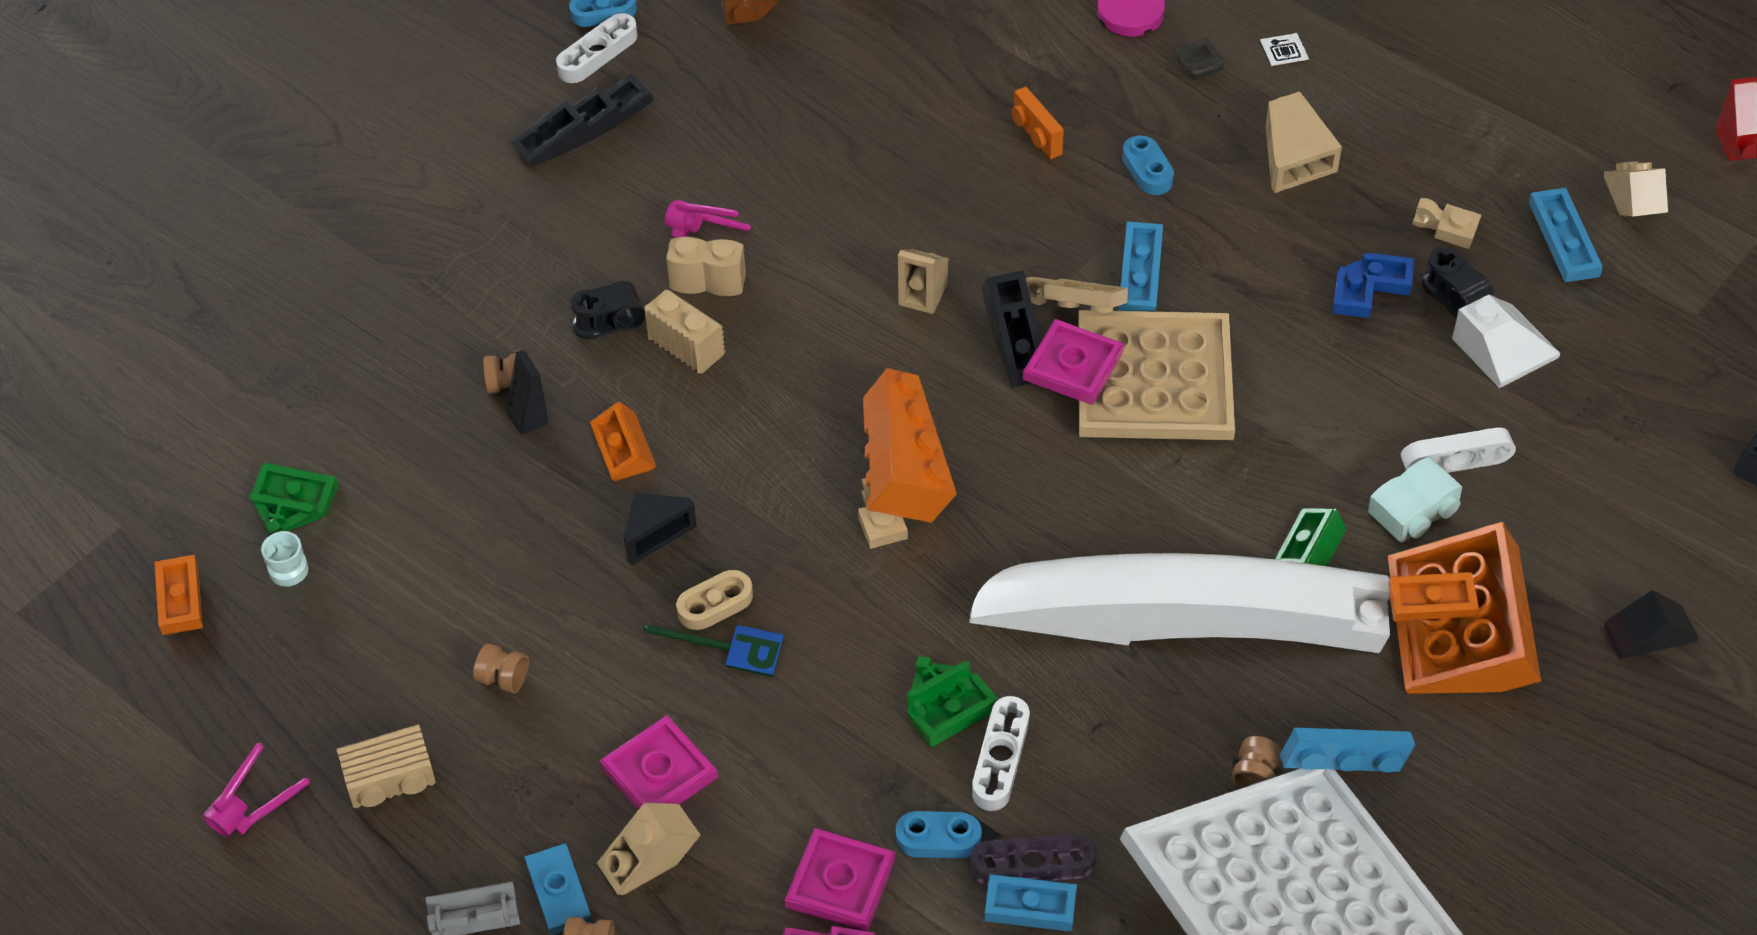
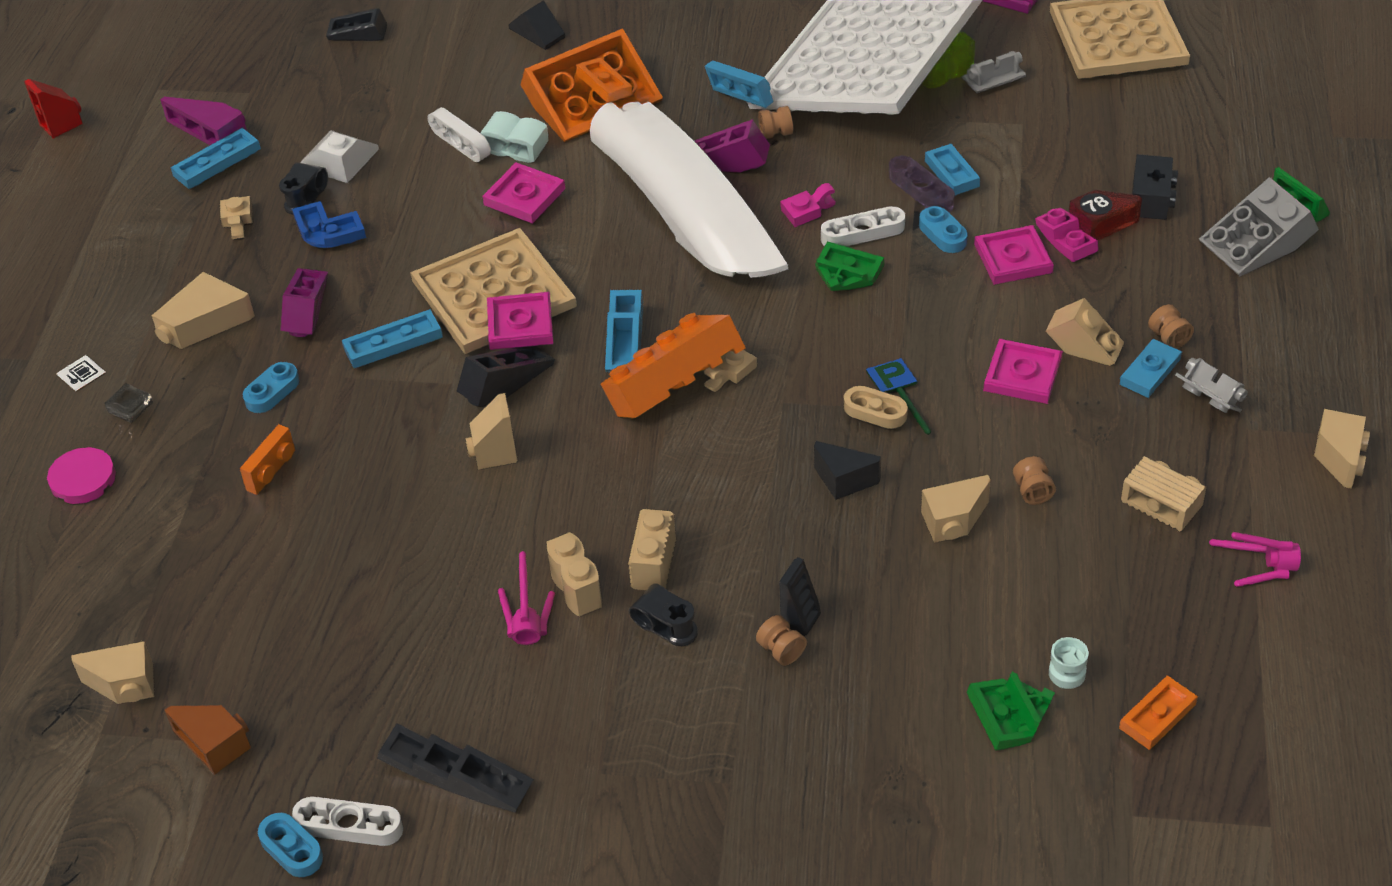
camera: 120 degrees left, 5 degrees down
(528, 580) = (954, 507): none -> tan slope
(622, 442) = (782, 540): orange slope -> none
(1000, 449) = (623, 327): none -> dark azure slope
(1073, 293) = (448, 348): tan hinge -> none
(1084, 719) = (807, 207): none -> dark pink plate
(1234, 683) = (736, 147): none -> magenta slope
(1254, 220) = (303, 302): none -> magenta slope
(1303, 467) = (524, 192): none -> dark pink plate
(1313, 537) = (584, 171): green slope -> none
(1637, 246) = (203, 119): none -> magenta slope
(1638, 188) = (150, 138): tan slope -> none

